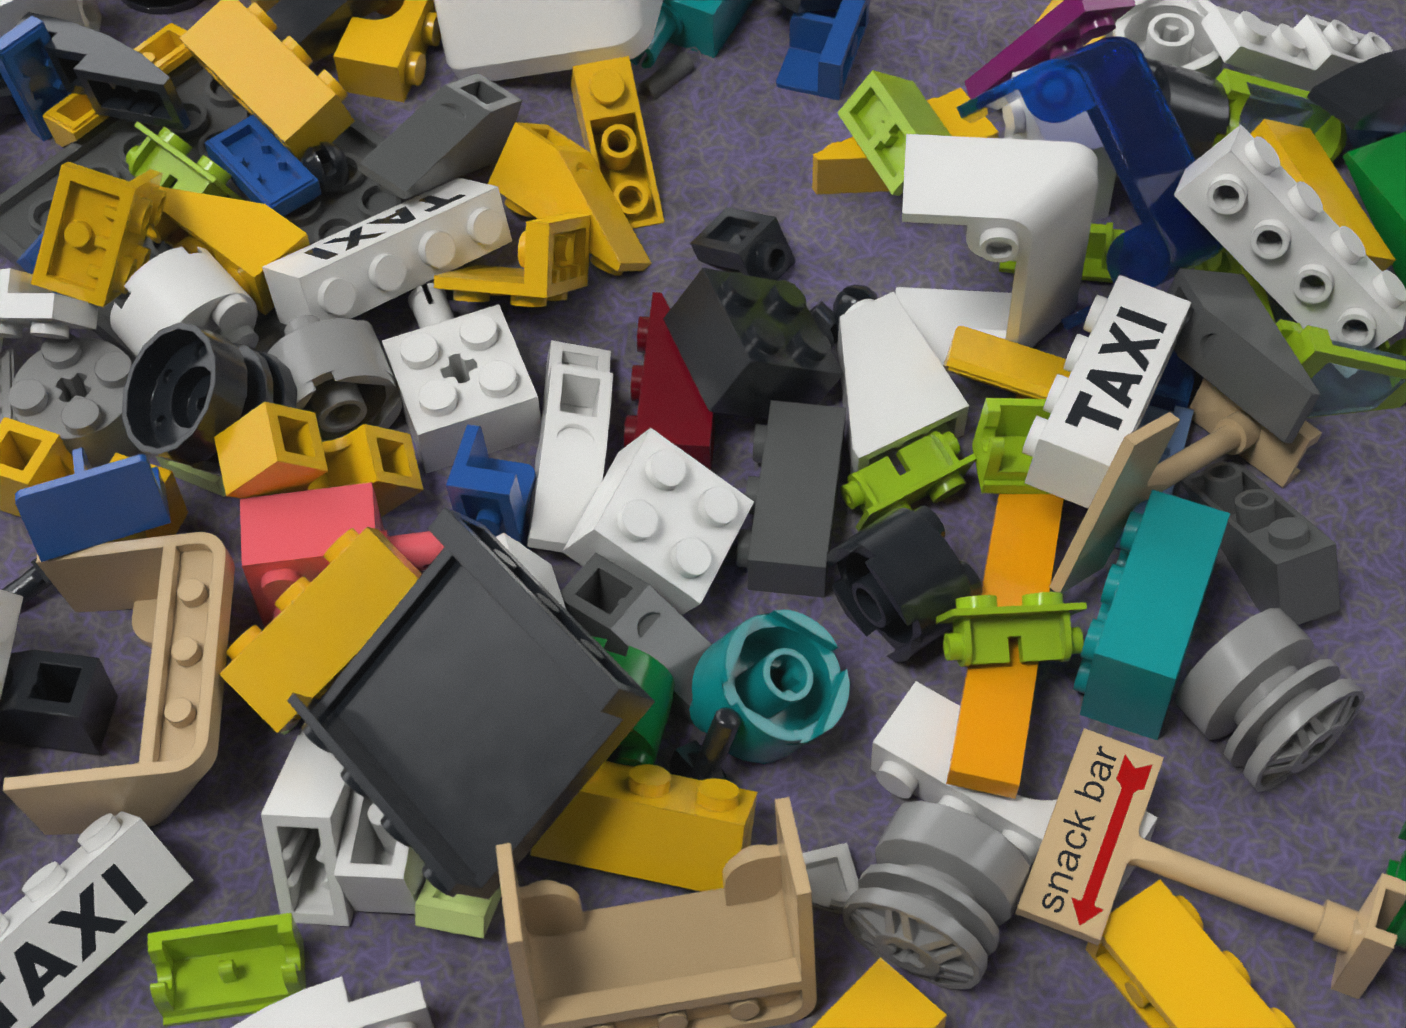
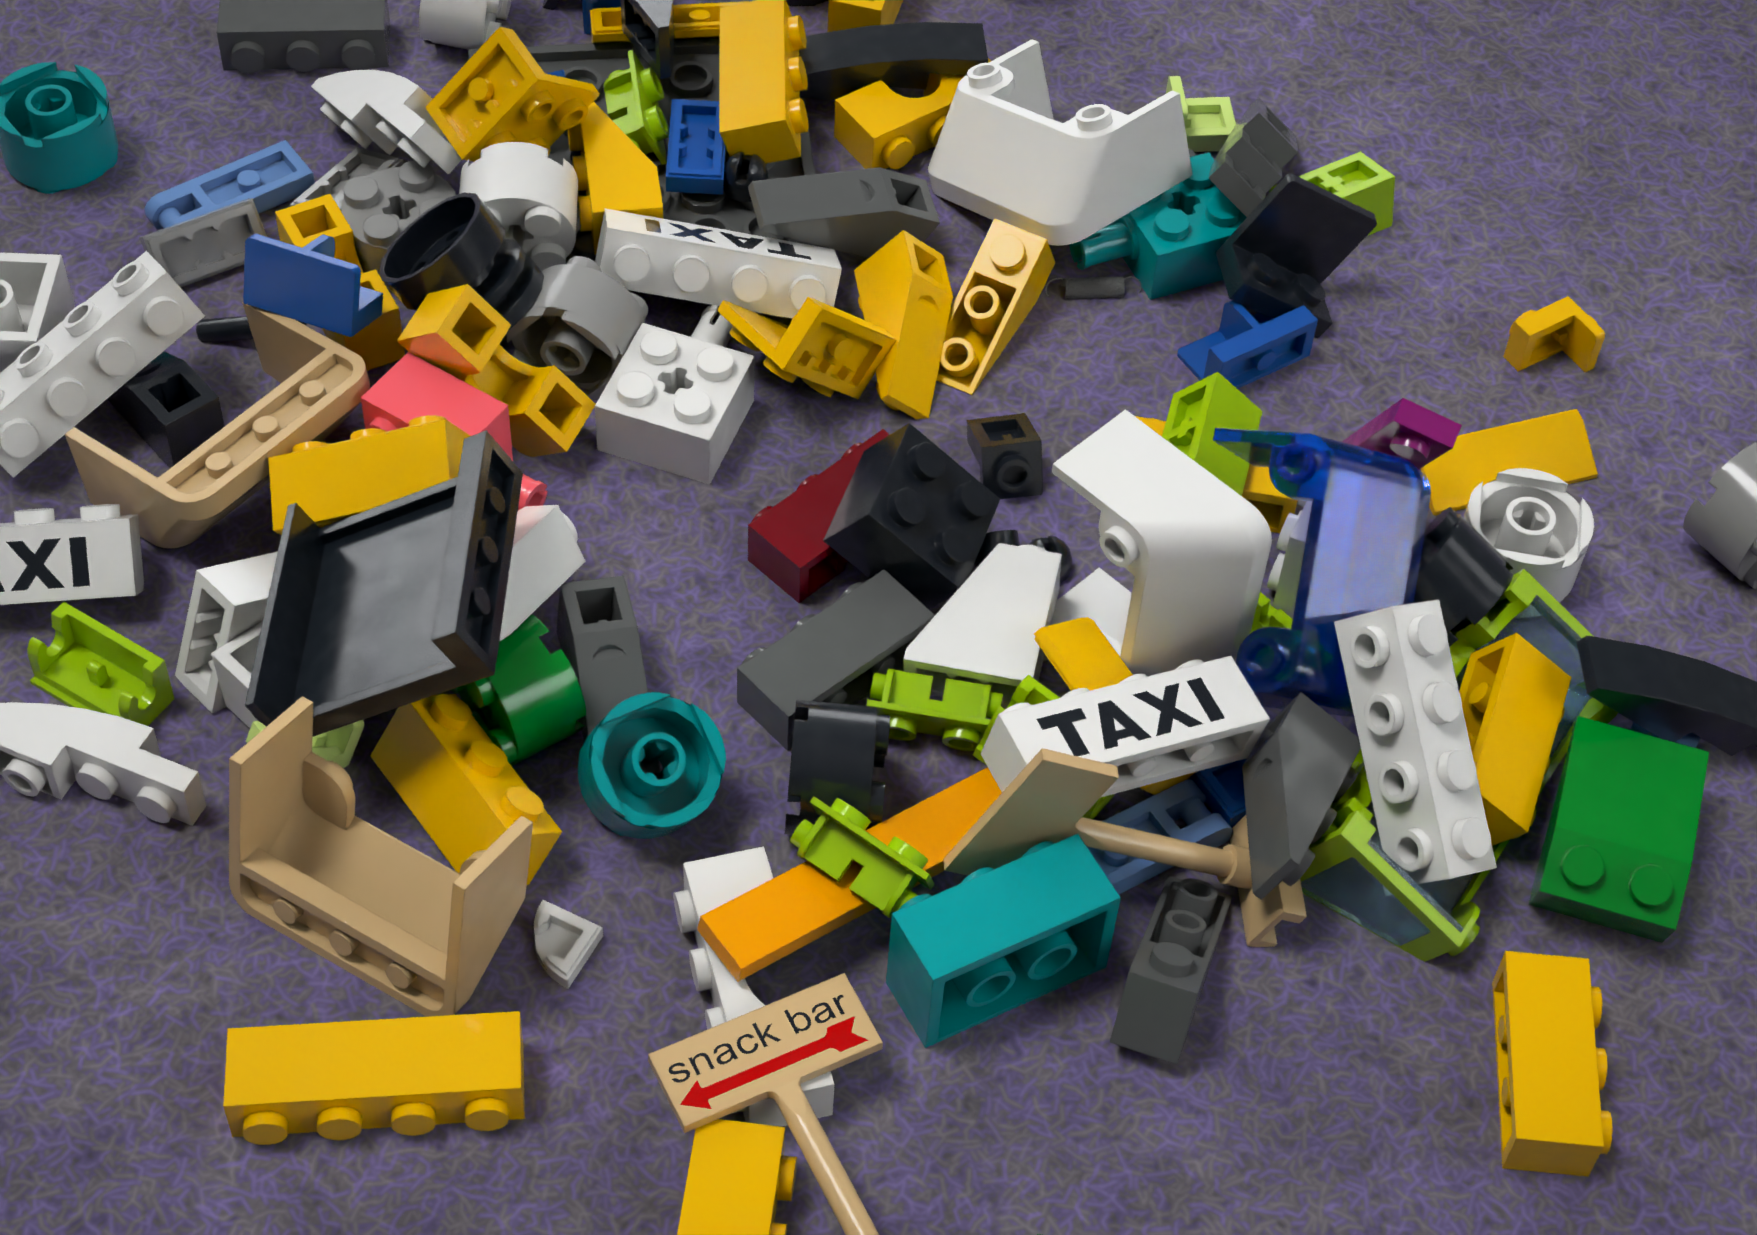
camera: 35 degrees right, 5 degrees down
(490, 488) = (600, 484): blue panel -> none
(571, 441) = (703, 498): white slope -> none
(661, 520) = (699, 595): white brick -> none
(707, 759) = (556, 779): black bar -> none
(937, 894) = (604, 1002): light grey wheel -> none
(1266, 694) = (1021, 1070): light grey wheel -> none
(1286, 54) = (1621, 608): white slope -> none

